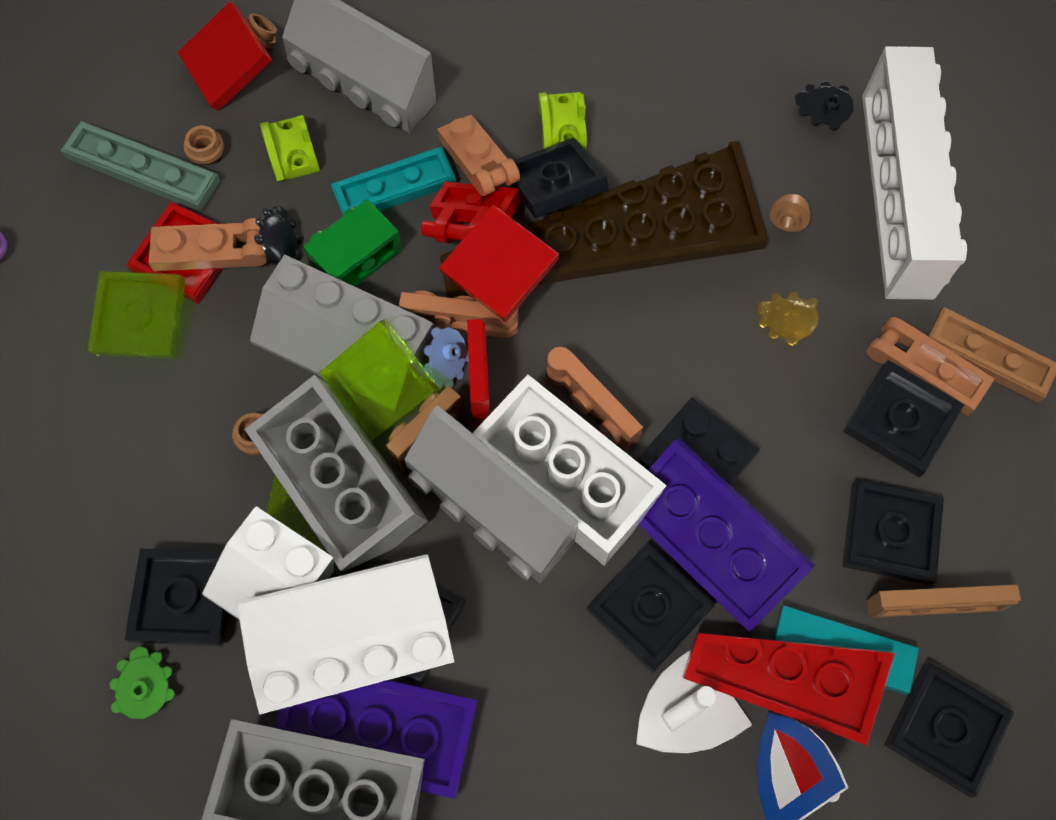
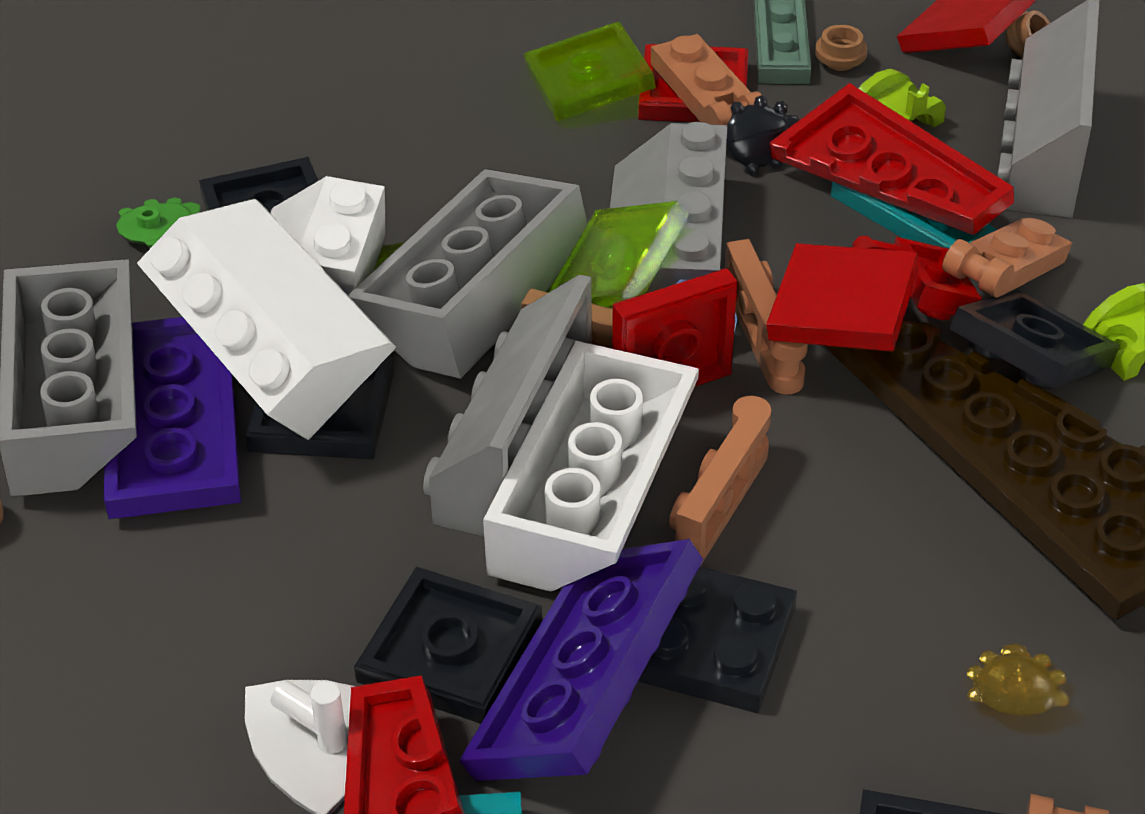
camera: 70 degrees right, 25 degrees down
(345, 175) = (893, 160): none -> red wing
(354, 245) = (789, 197): green brick -> none

